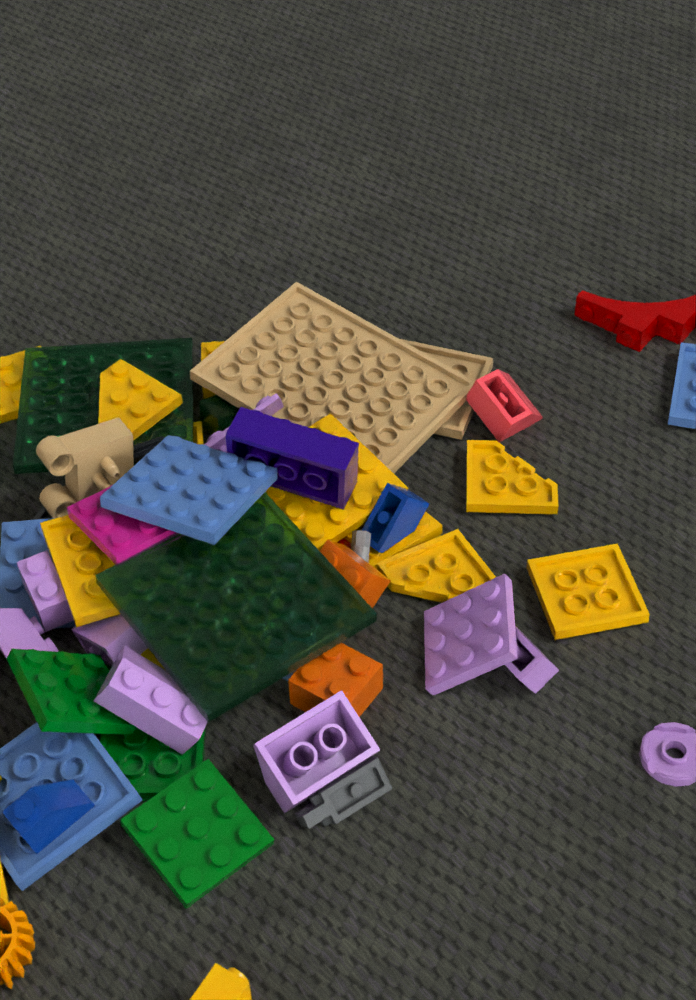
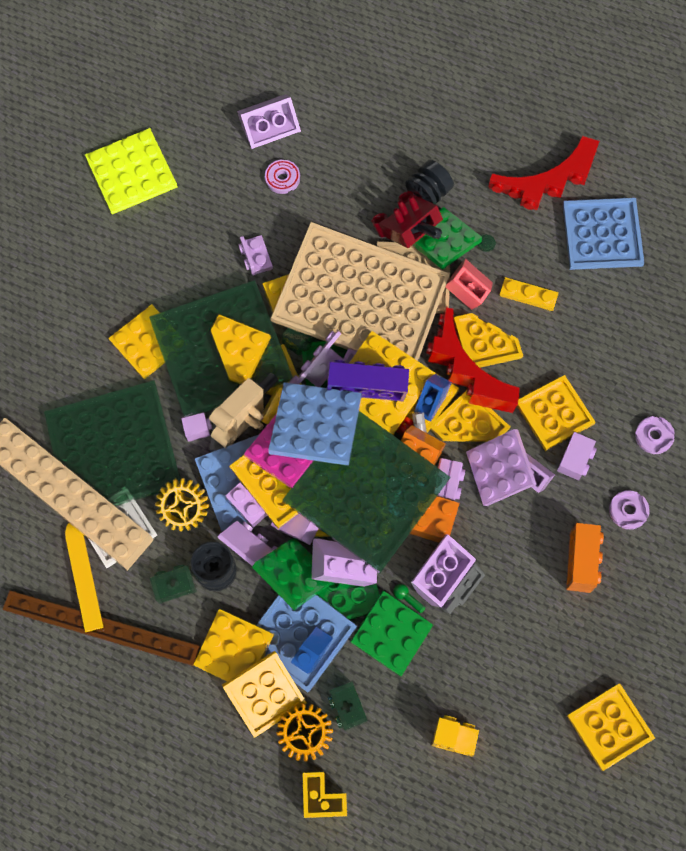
camera: 15 degrees left, 25 degrees up
(24, 489) = (196, 426): none -> lavender brick
(77, 945) = (348, 694): none -> clear green brick
(89, 212) = (131, 171): none -> neon yellow plate
(209, 321) = (256, 255): none -> lavender bracket
(244, 782) = (402, 592): none -> green bar
(274, 249) = (282, 167): none -> lavender tile
(294, 191) = (269, 121): none -> lavender slope
(384, 637) = (455, 471): none -> lavender brick
(437, 309) = (410, 221): none -> dark red piece
(473, 522) = (462, 370): none -> red arch
(484, 348) = (454, 242): none -> green plate
(486, 285) = (430, 182): none -> black wheel
(548, 371) = (487, 244): none -> clear green plate
(569, 794) = (584, 557): none -> orange brick
(594, 440) = (529, 294): none -> yellow plate
(604, 654) = (576, 456): none -> lavender brick

